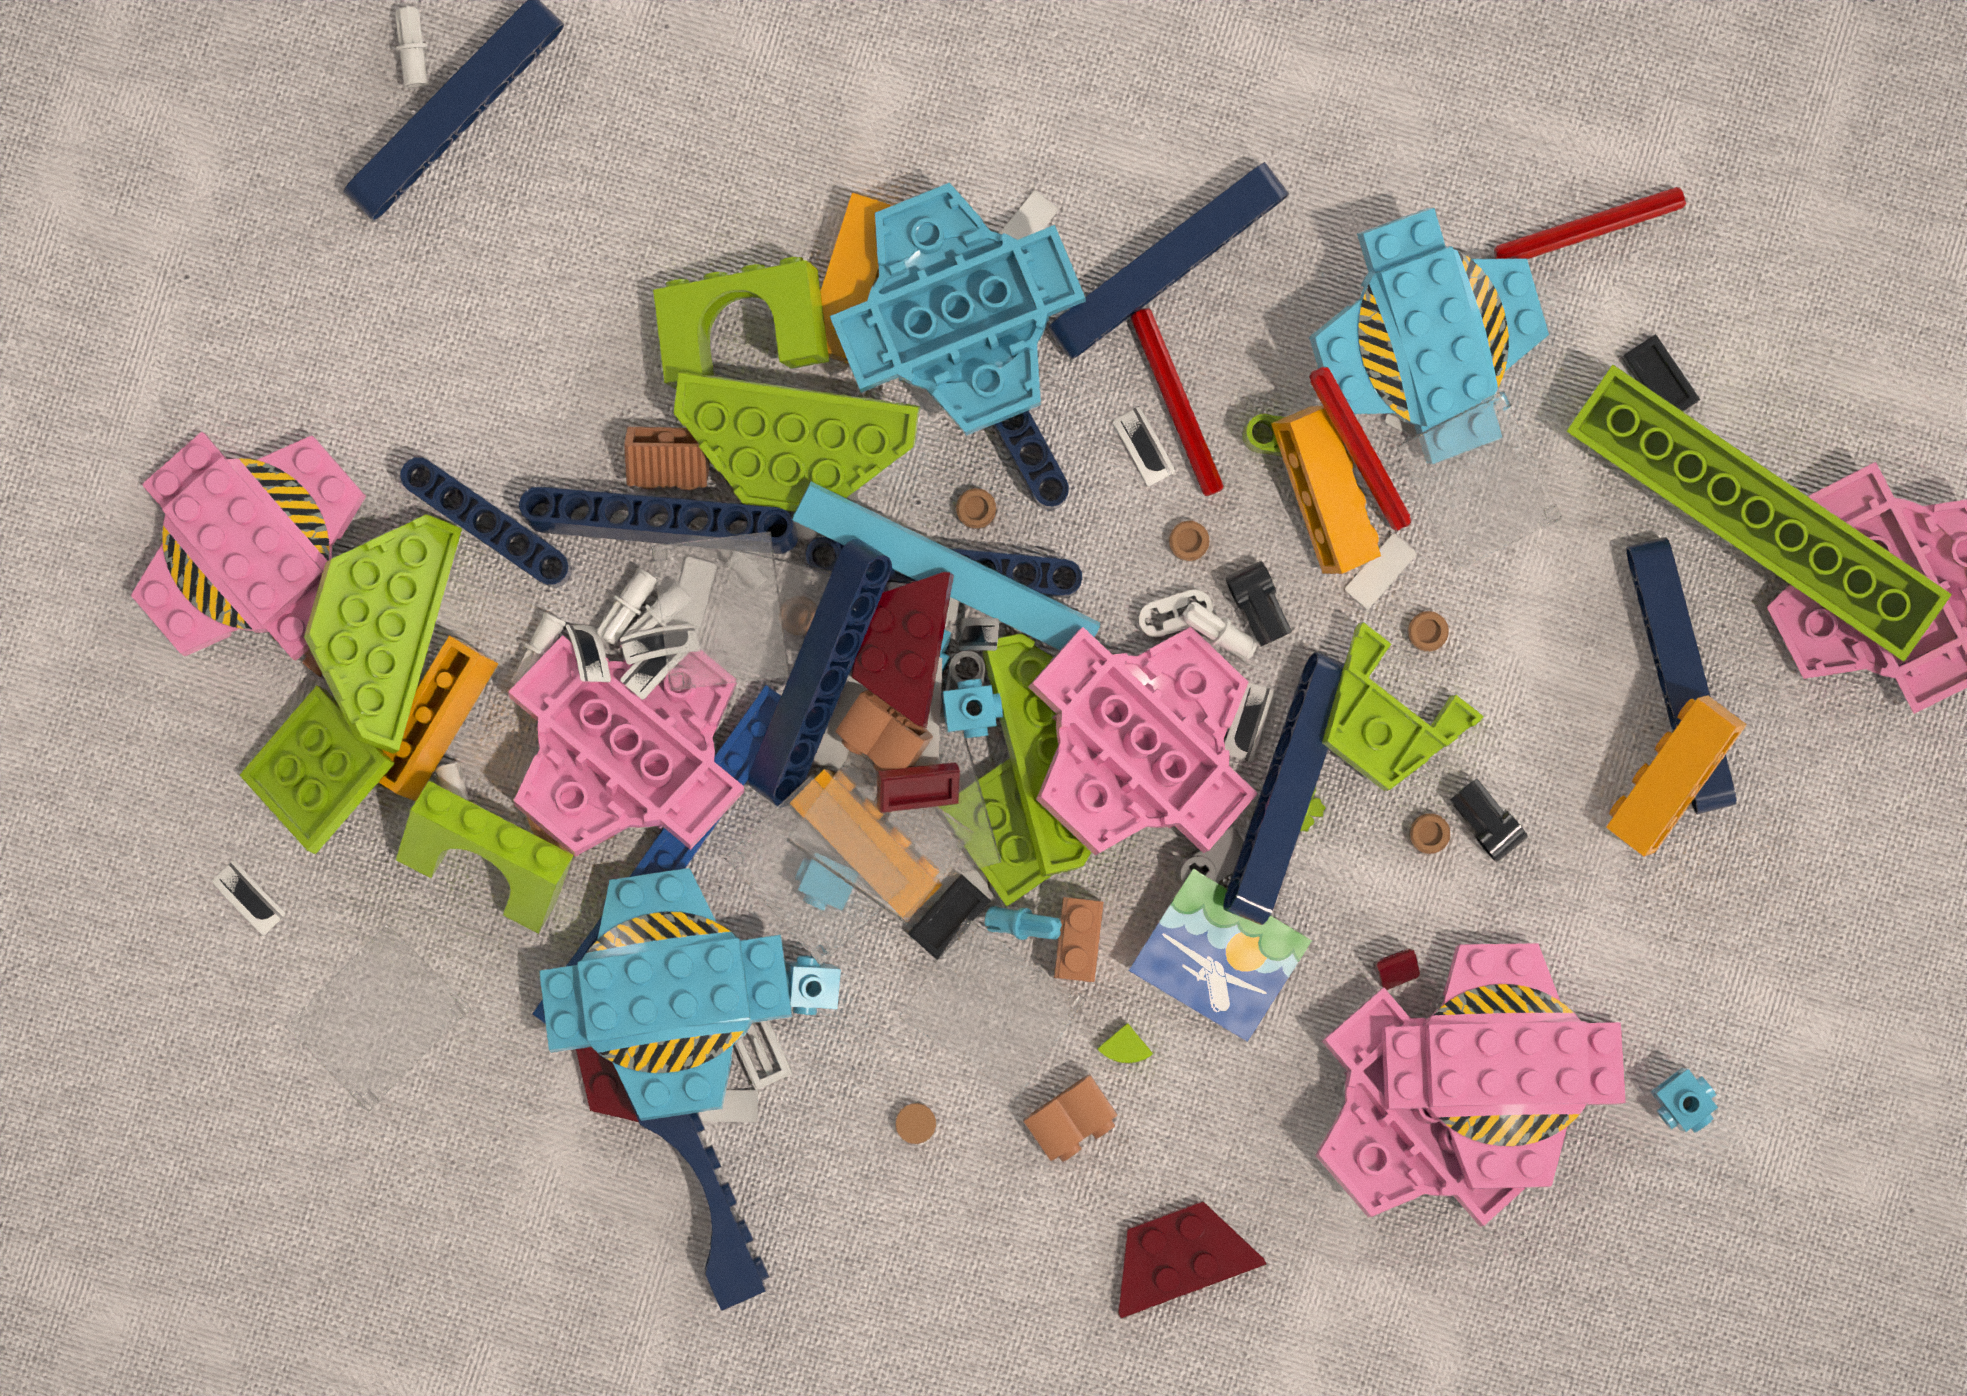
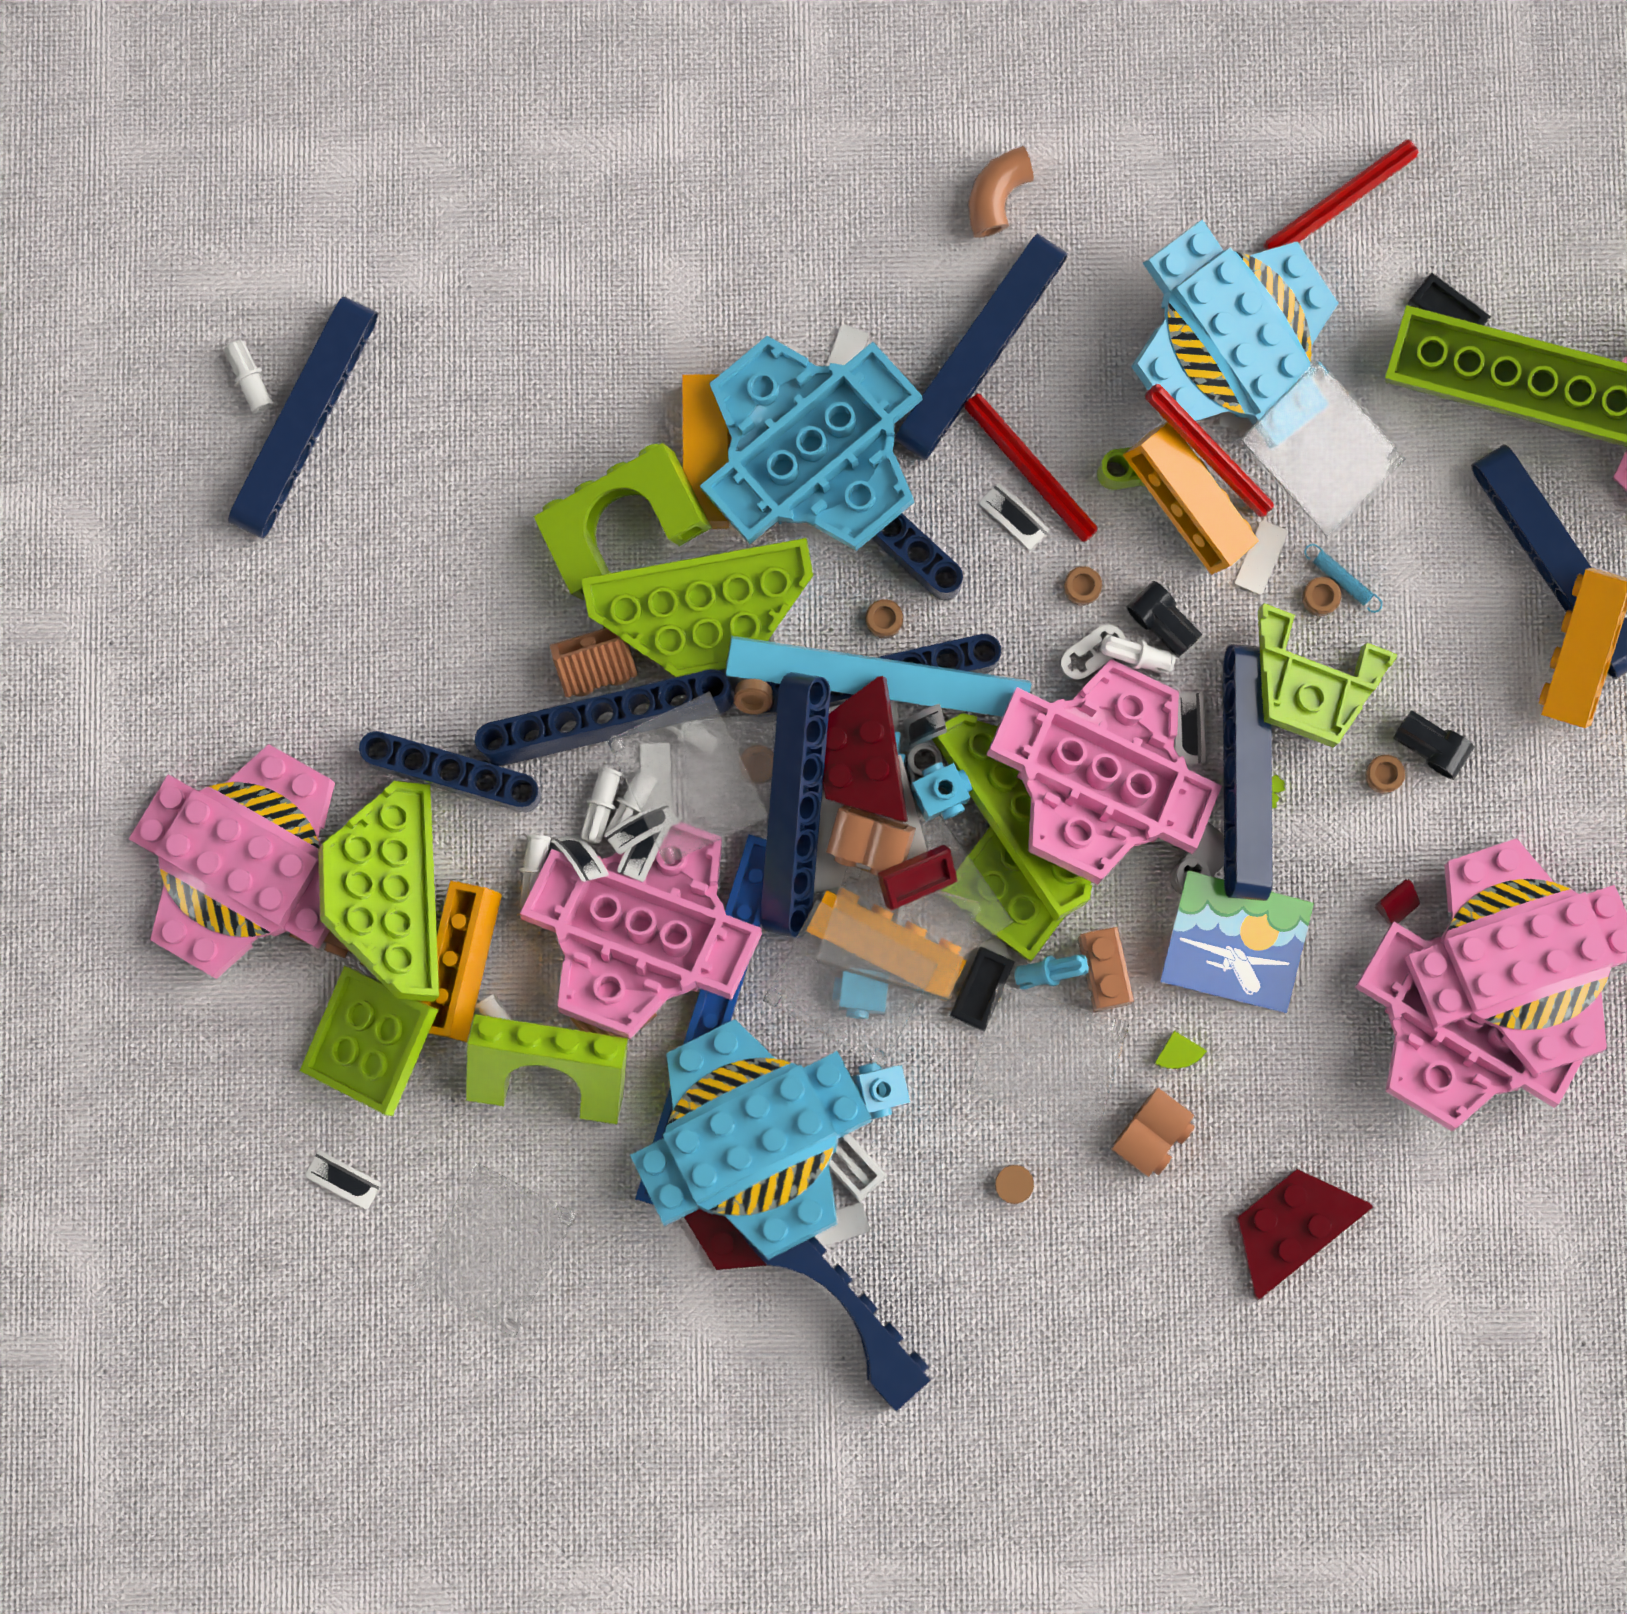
camera: 15 degrees left, 5 degrees down
(813, 549) = (753, 696): none -> medium nougat tile
(1234, 100) = (992, 189): none -> nougat cylinder
(1456, 620) = (1343, 578): none -> medium azure piece

